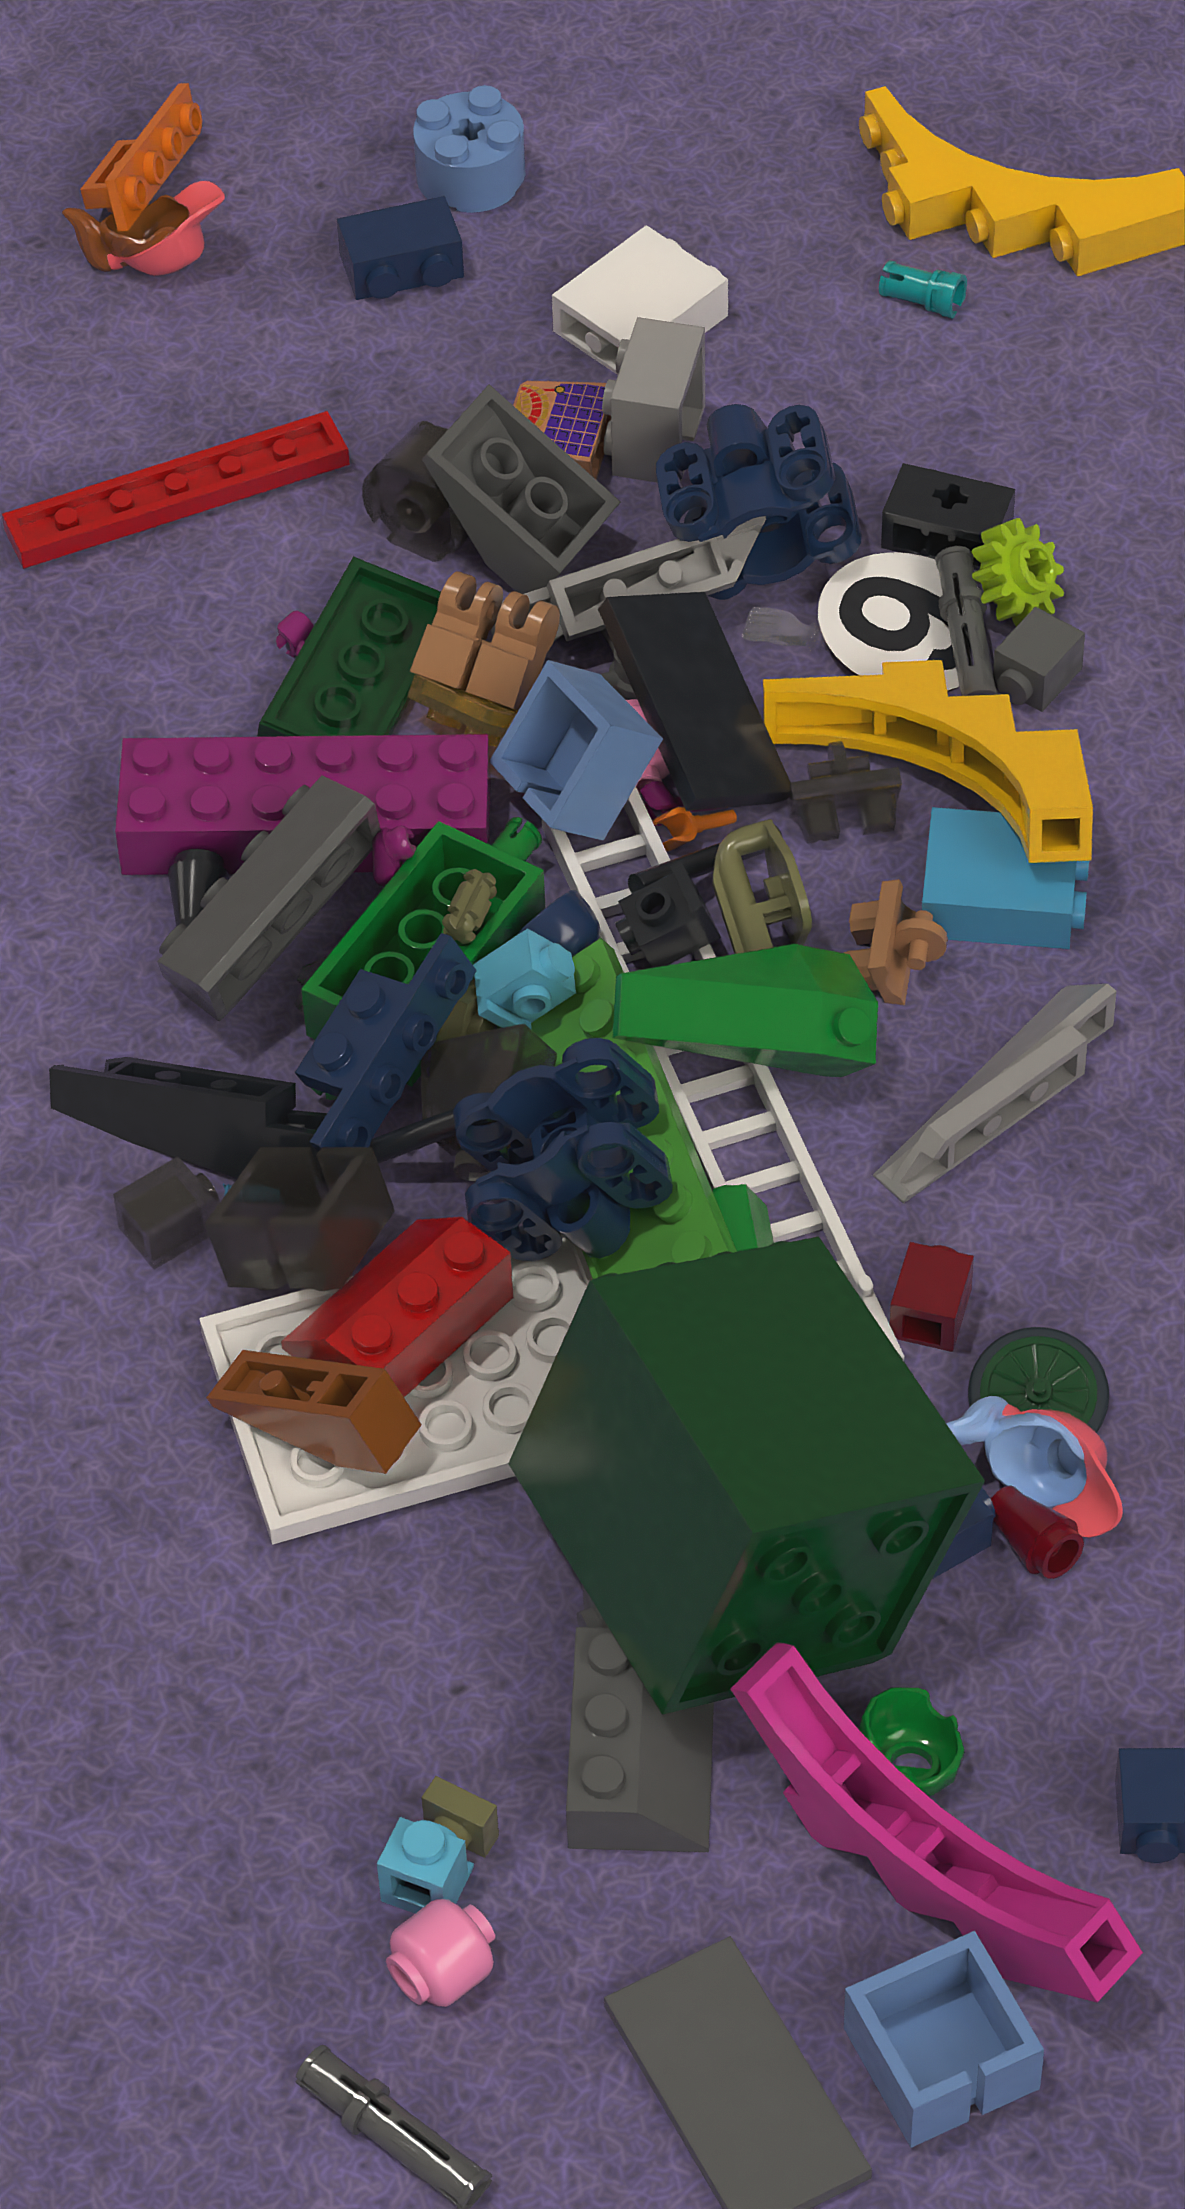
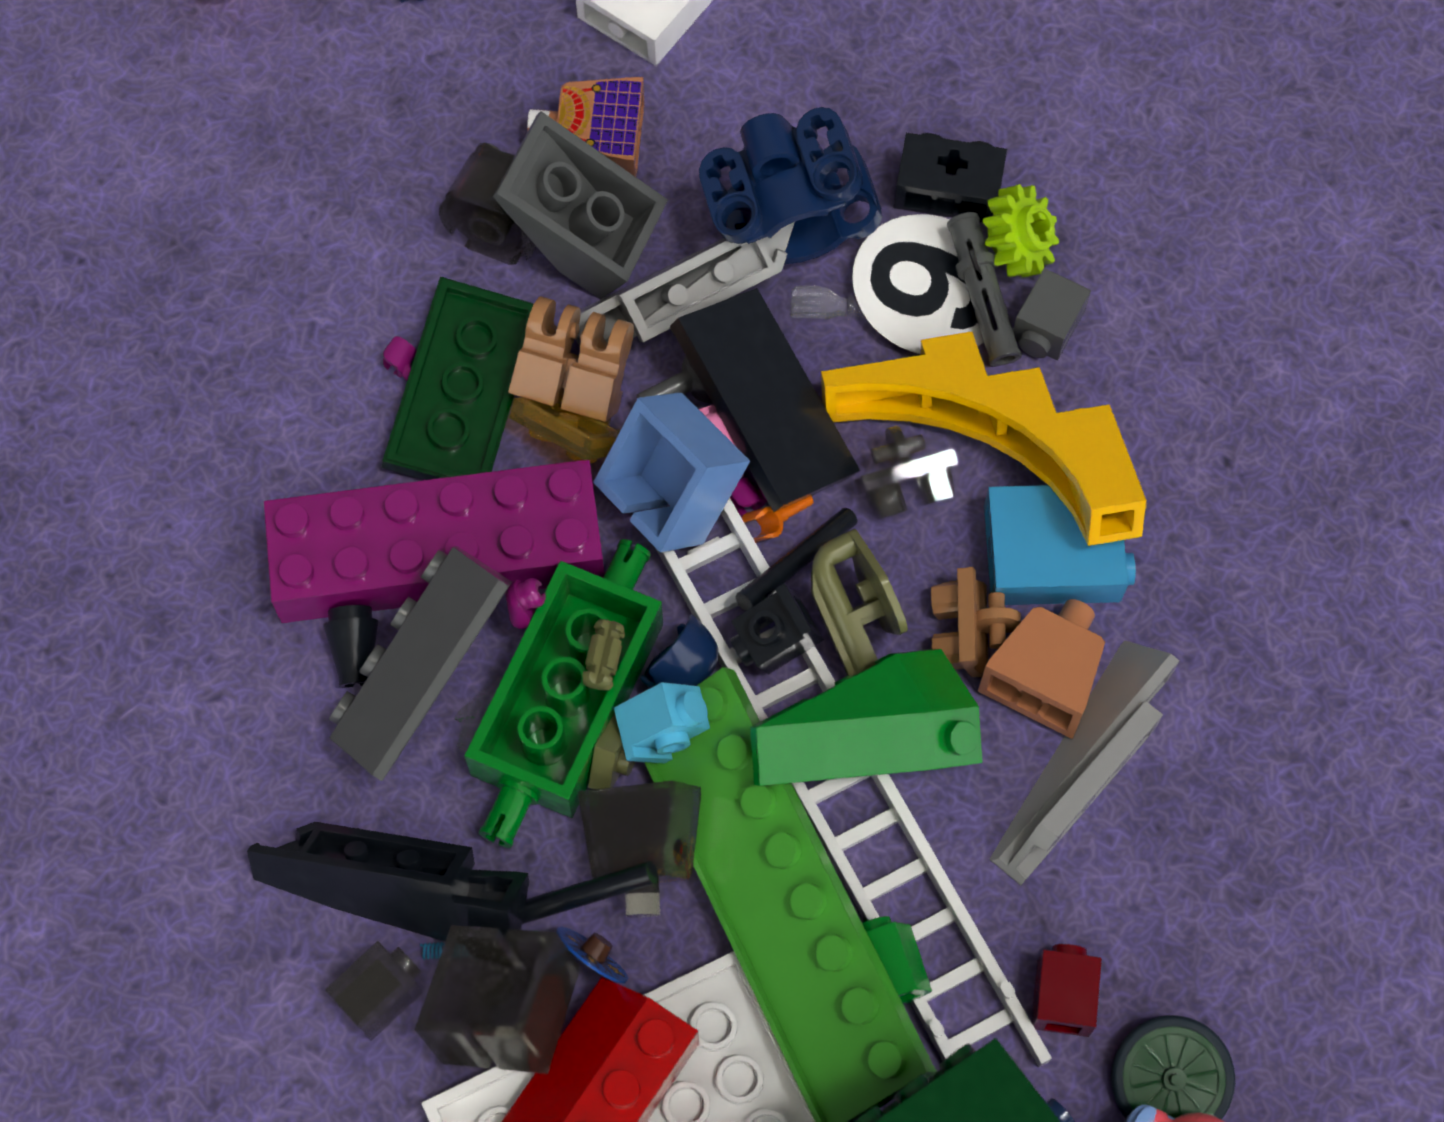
camera: 10 degrees left, 15 degrees up
(175, 489) = (271, 219): red plate -> none
(379, 1041) = (538, 813): dark blue bracket -> none
(413, 1194) = (593, 953): none -> piece
(565, 1154) = (719, 887): dark blue piece -> none
(655, 395) = (681, 90): light grey piece -> none
(966, 990) = (1047, 666): none -> nougat torso

